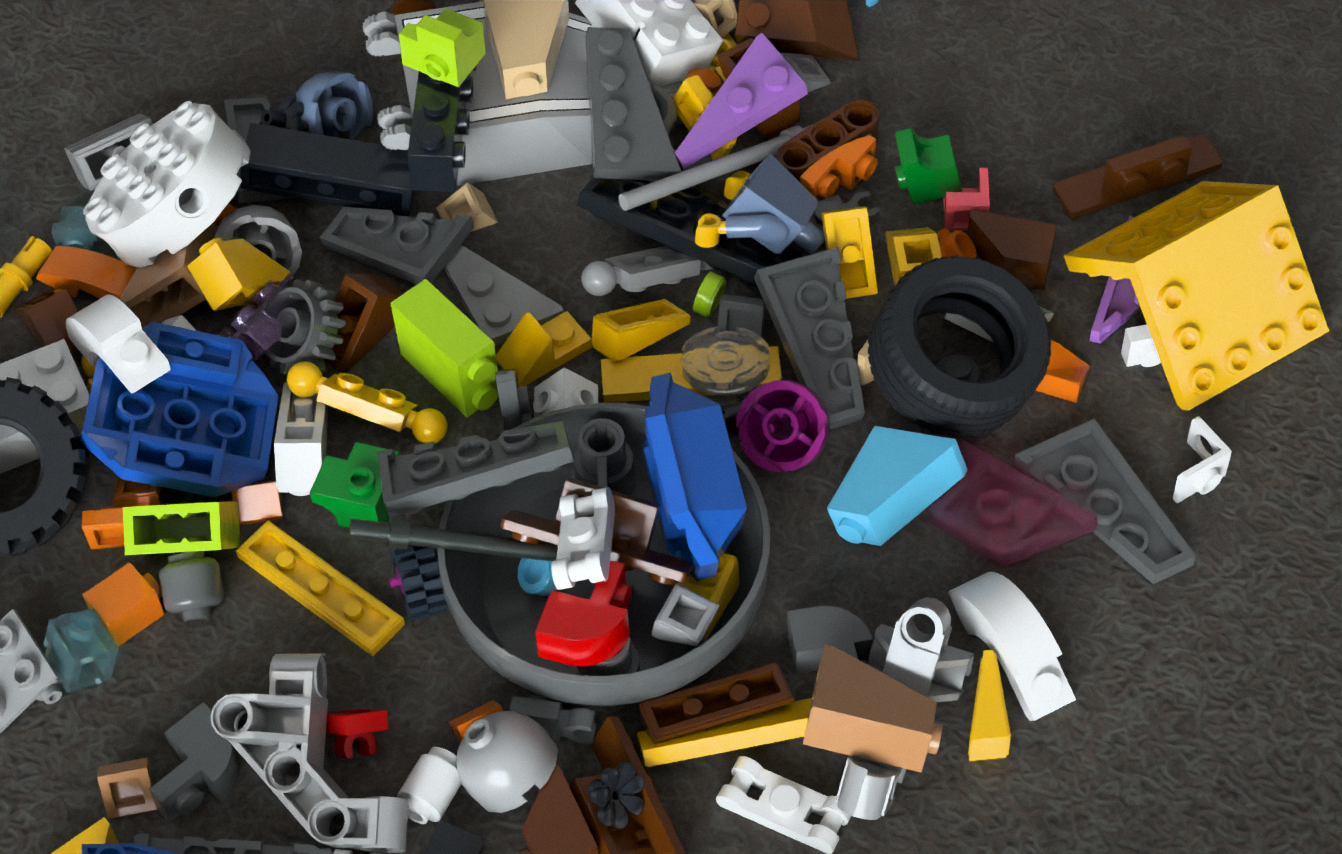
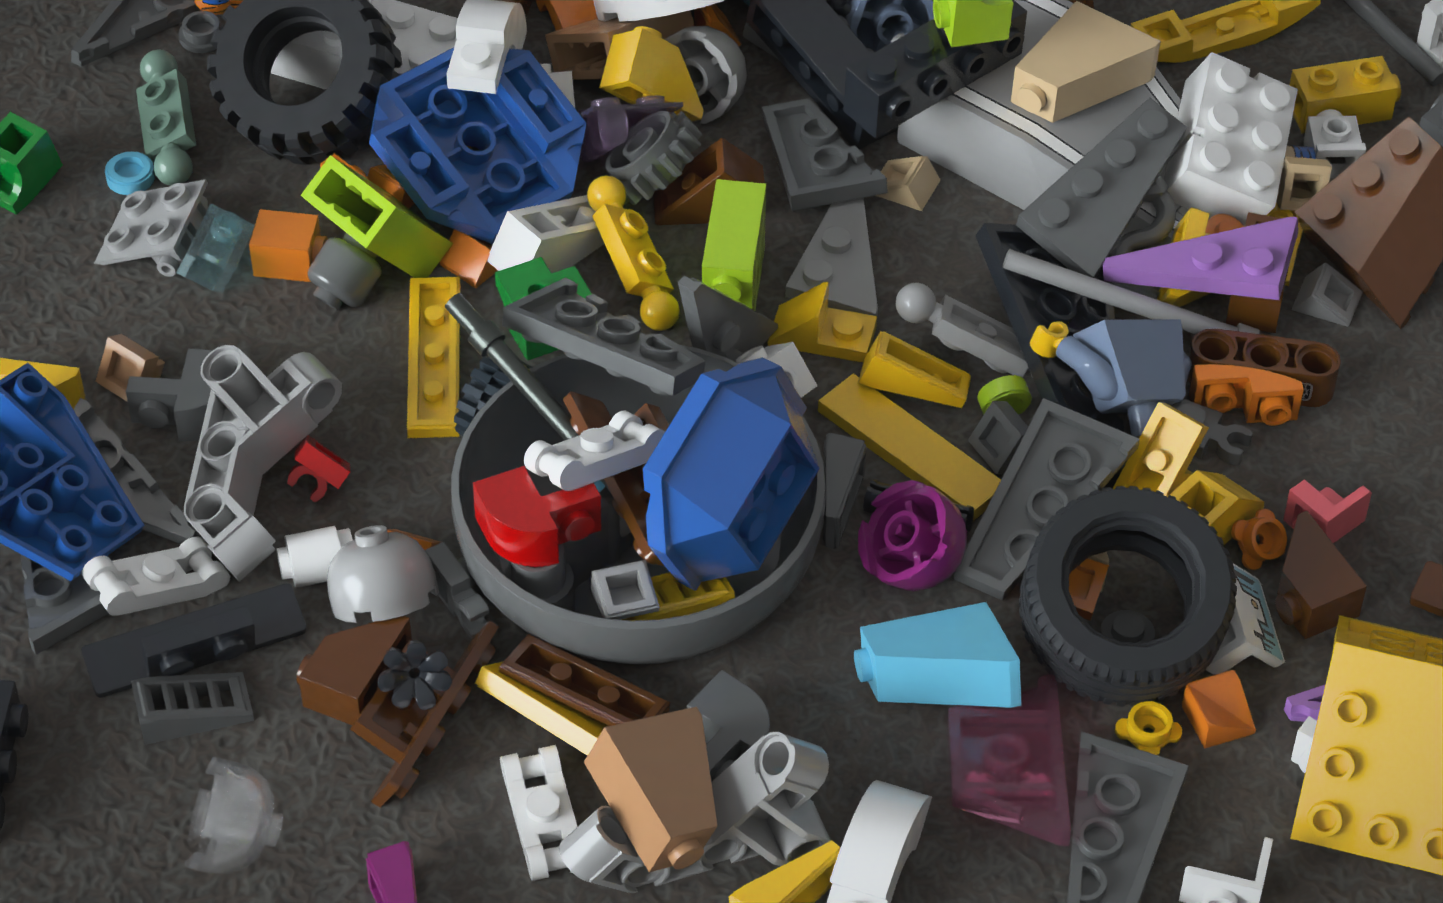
camera: 45 degrees right, 5 degrees down
(725, 361) = (942, 453): clear tile -> none
(926, 166) = (1323, 447): green brick -> none
(1040, 408) = (1153, 716): none -> yellow plate

